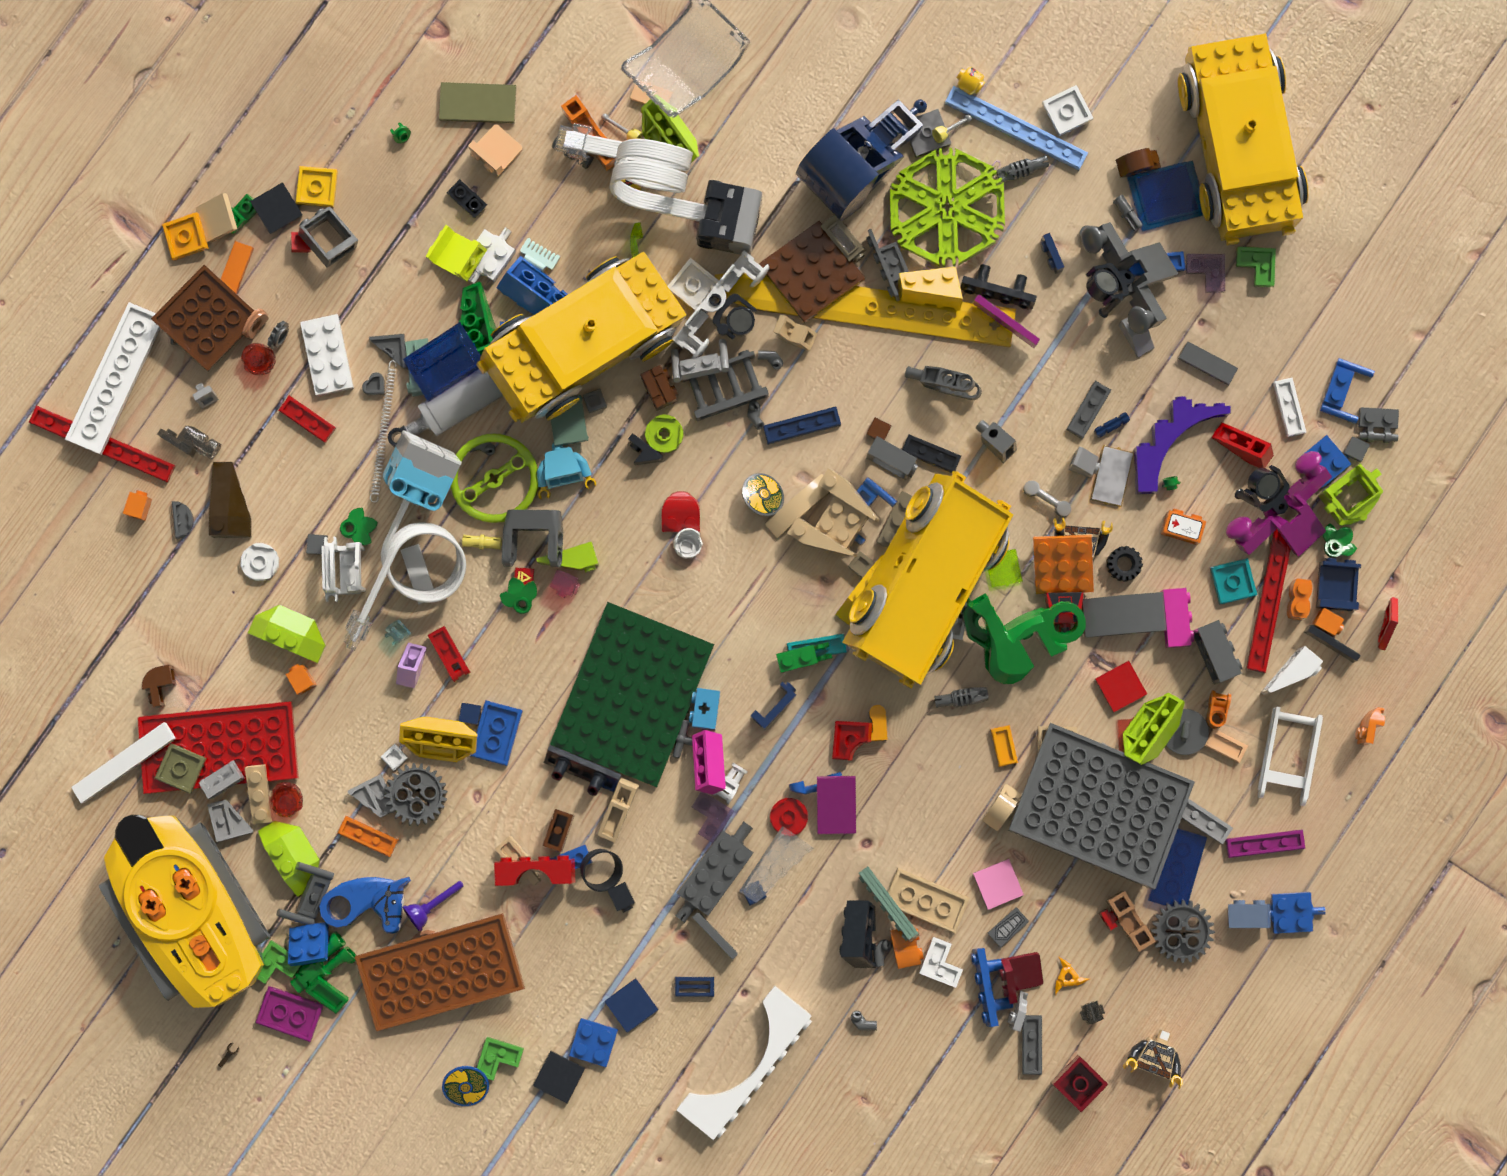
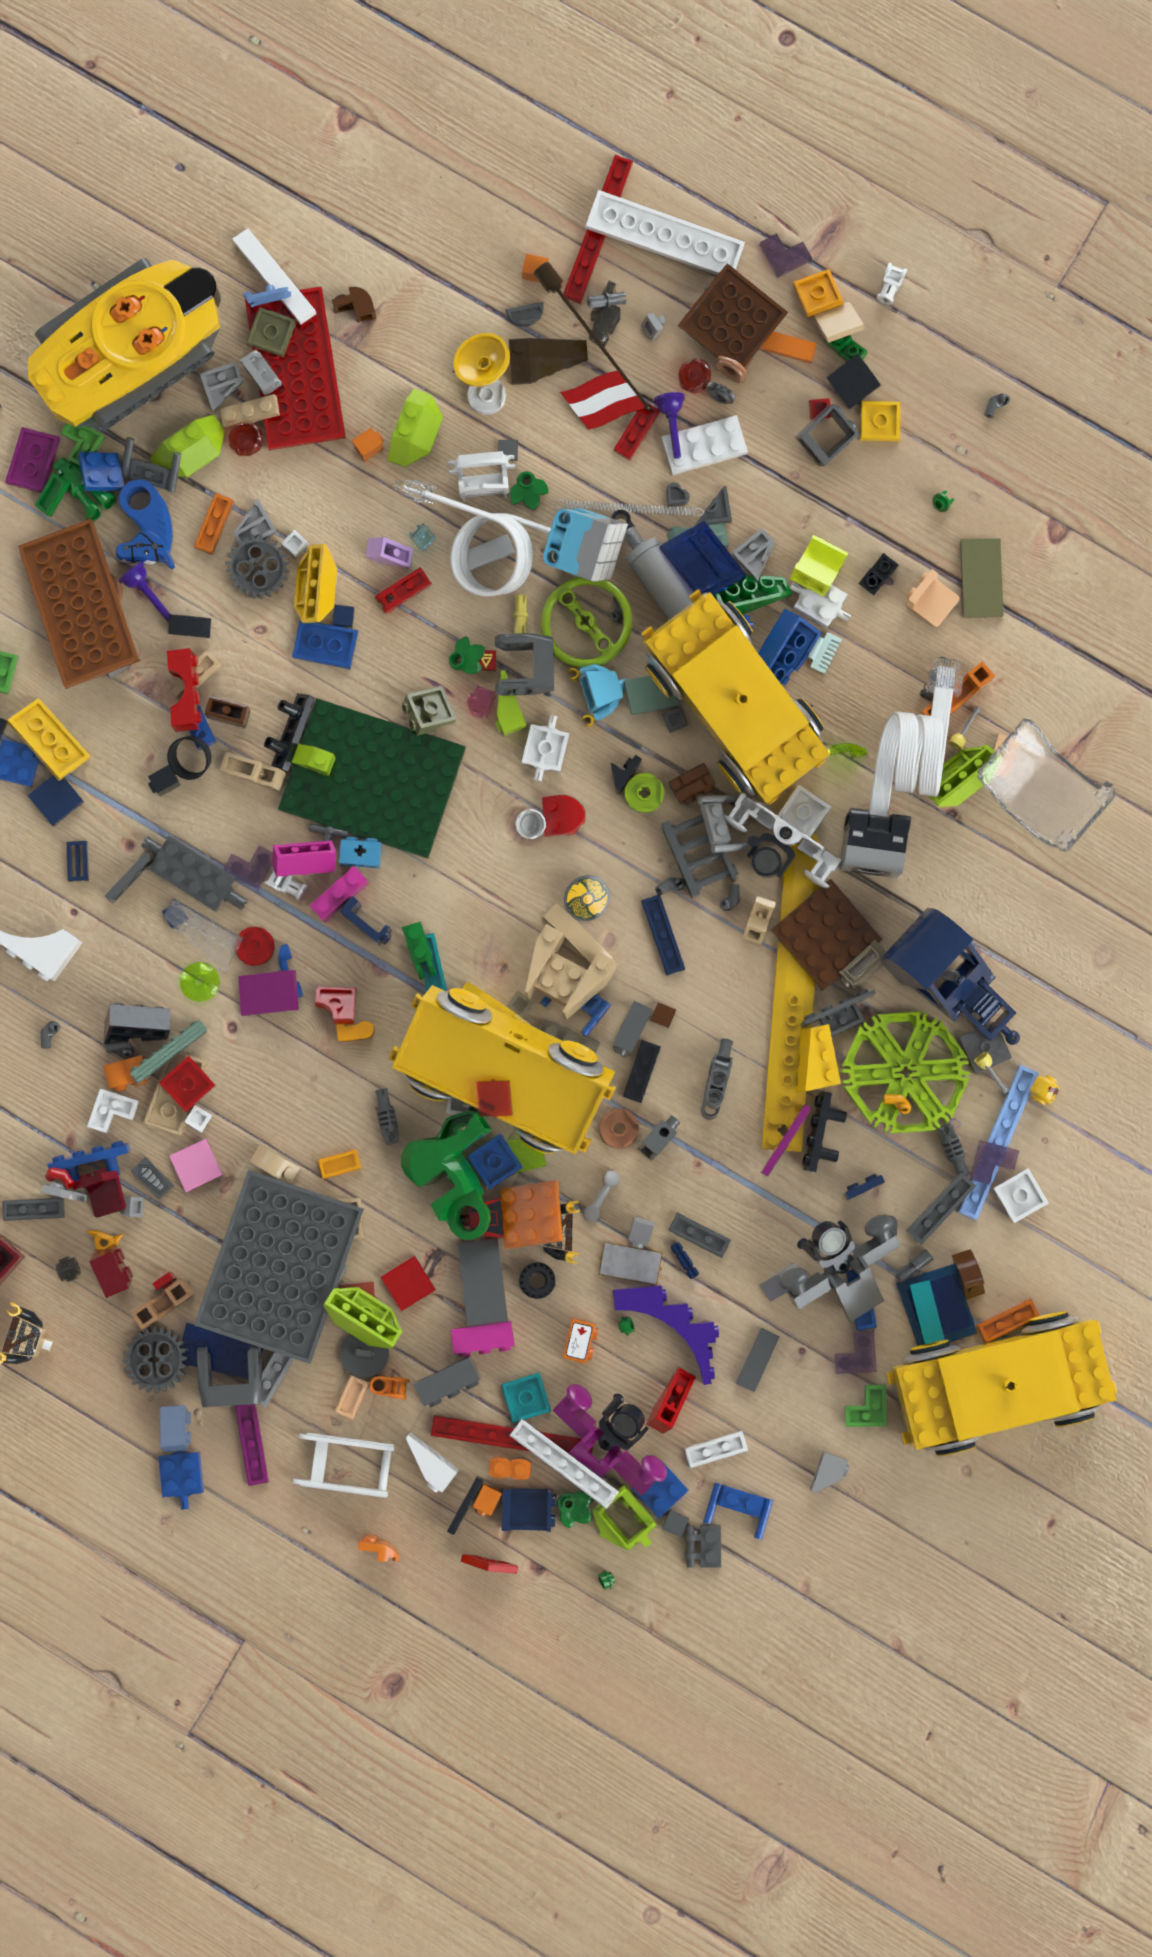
camera: 85 degrees right, 0 degrees up
(144, 767) = (269, 296): none -> medium blue piece
(148, 268) = (783, 260): none -> clear purple plate
(177, 437) = (606, 300): none -> dark grey axle
(181, 165) = (891, 281): none -> white connector
(216, 564) = (477, 353): none -> yellow dish
(271, 447) = (606, 395): none -> flag
(286, 383) = (670, 404): none -> dark purple piece
(307, 76) = (996, 402): none -> dark grey arm
(438, 313) = (755, 553): none -> light grey wing
(469, 864) = (189, 626): none -> black slope
(570, 635) = (428, 710): none -> olive plate
(573, 1008) = (48, 739): none -> yellow plate
(611, 748) = (314, 759): none -> lime slope
(614, 525) = (545, 748): none -> white plate
(744, 731) = (338, 894): none -> dark pink brick
(810, 876) = (209, 985): none -> clear neon green dish
(920, 887) = (187, 1084): none -> red plate
(954, 879) = (197, 1119): none -> white plate
(956, 586) = (494, 1098): none -> clear red piece
(975, 213) = (899, 1102): none -> light orange arm
(985, 467) = (619, 1116): none -> nougat tile
(1001, 1016) = (60, 1174): none -> red arm
(1010, 596) = (495, 1161): none -> blue plate
(1029, 134) = (991, 1155): none -> clear purple plate
(1035, 944) = (134, 1207): none -> light grey tile
(1076, 183) = (941, 1208): none -> dark grey plate
(1097, 969) = (111, 1270): none -> dark red brick
(1171, 203) = (926, 1312): none -> teal tile
(1182, 131) = (1007, 1321): none -> orange tile
(1219, 860) = (229, 1394): none -> dark grey connector
(1299, 546) = (564, 1463): none -> white tile
(1315, 304) = (829, 1471): none -> light grey slope
(1406, 516) = (606, 1579): none -> green plate

